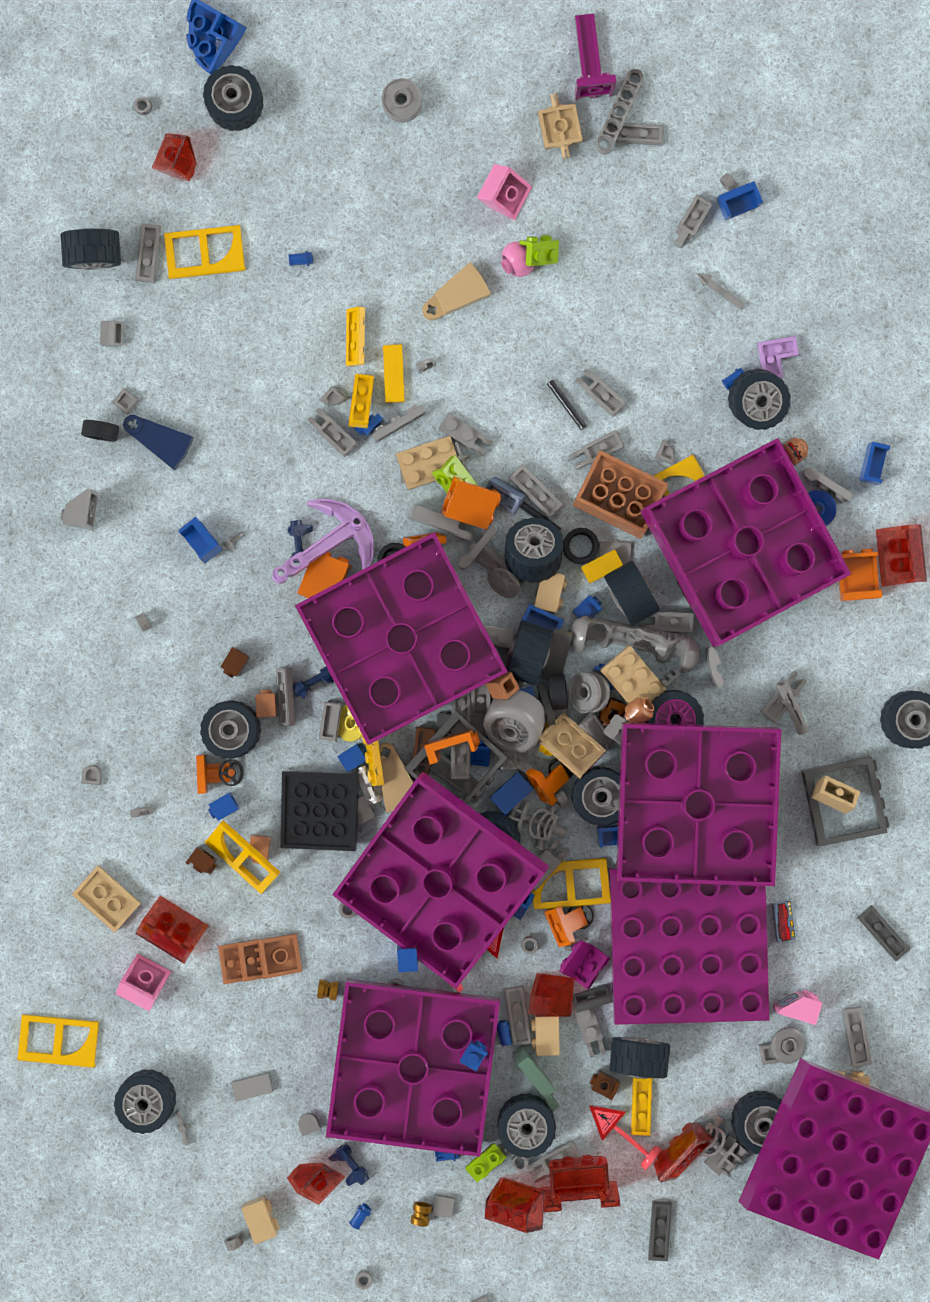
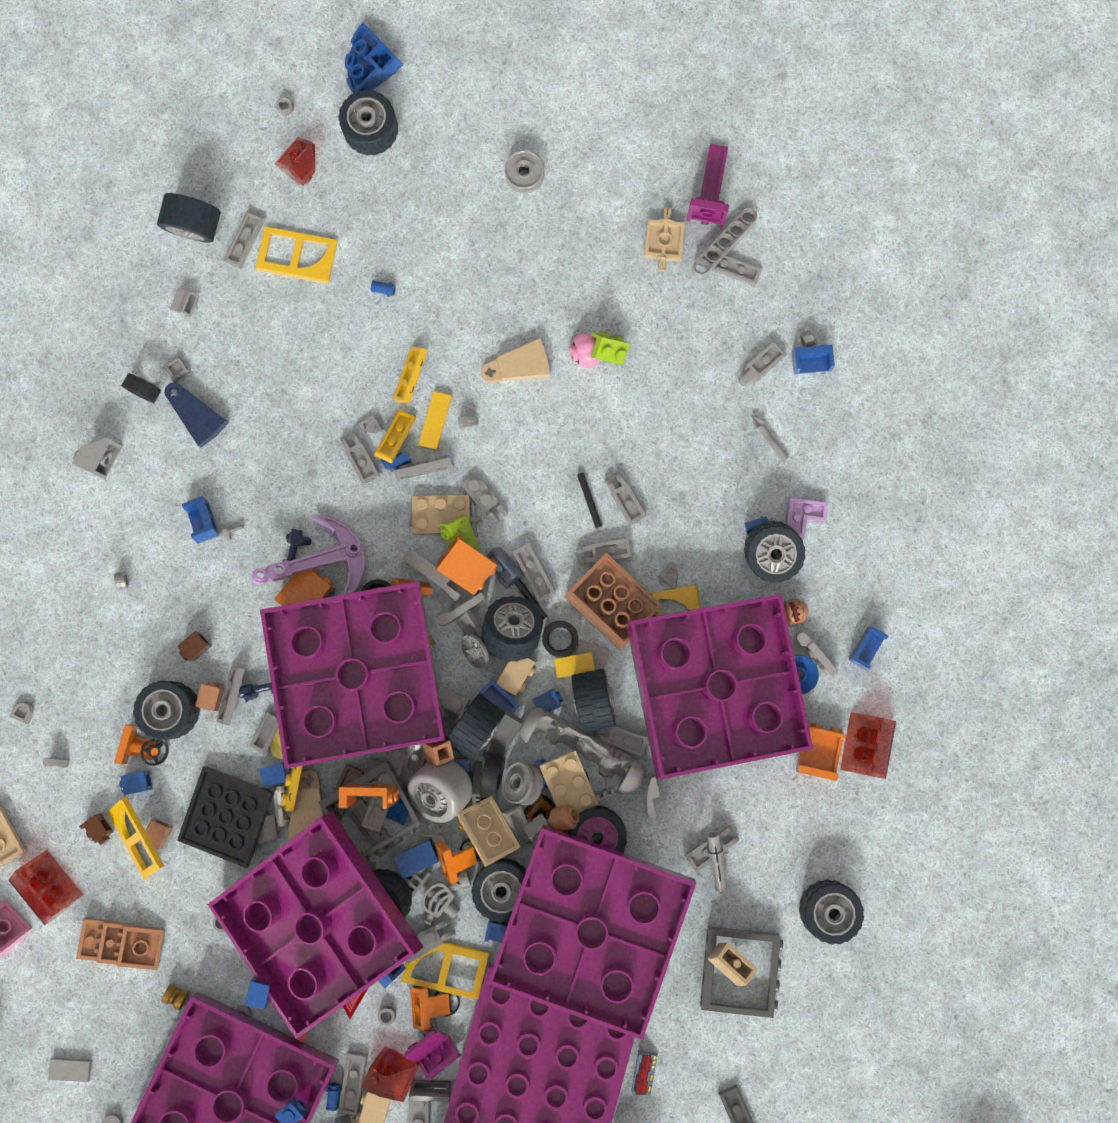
camera: 25 degrees right, 5 degrees down
(504, 191) = (593, 283): bright pink slope -> none

